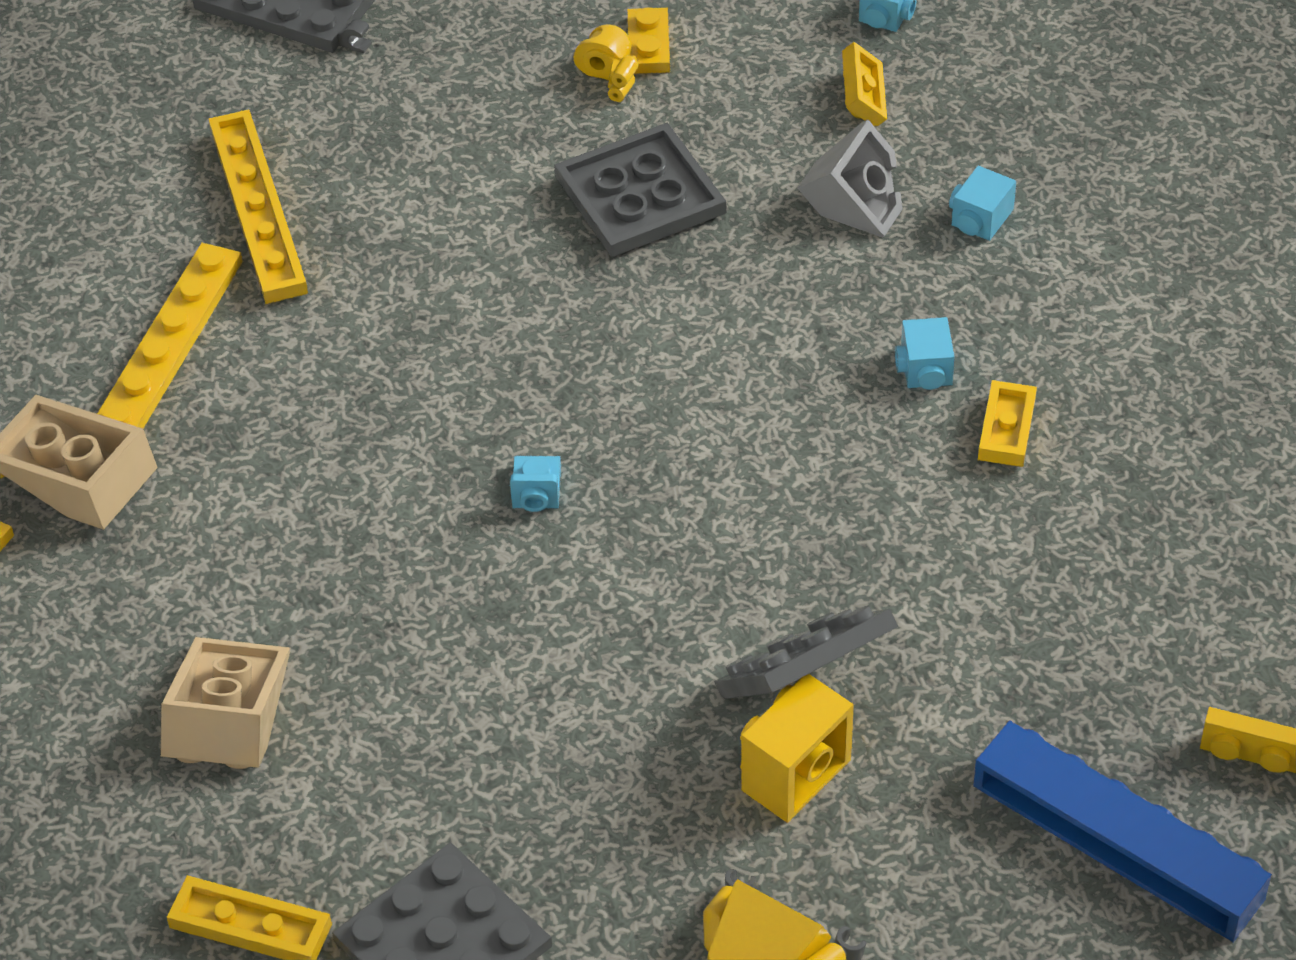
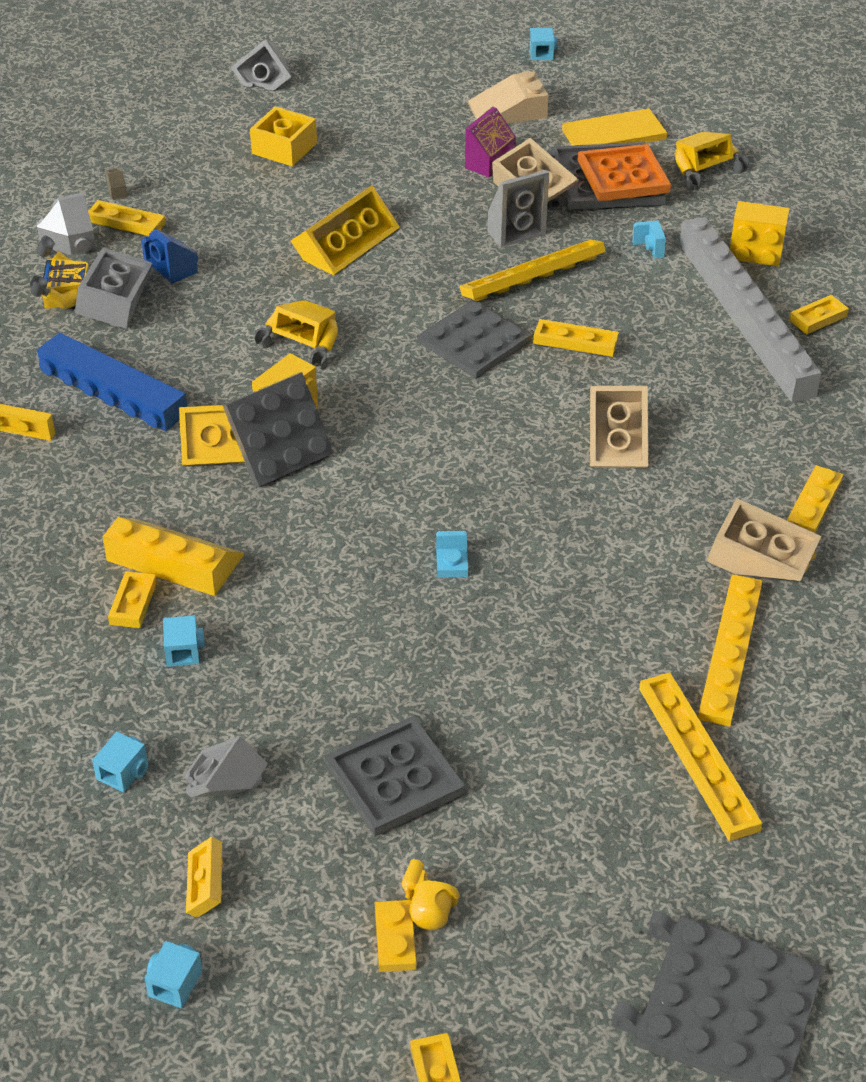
camera: 175 degrees right, 5 degrees down
(903, 683) = (207, 437): none -> yellow plate
(959, 491) = (169, 554): none -> yellow slope

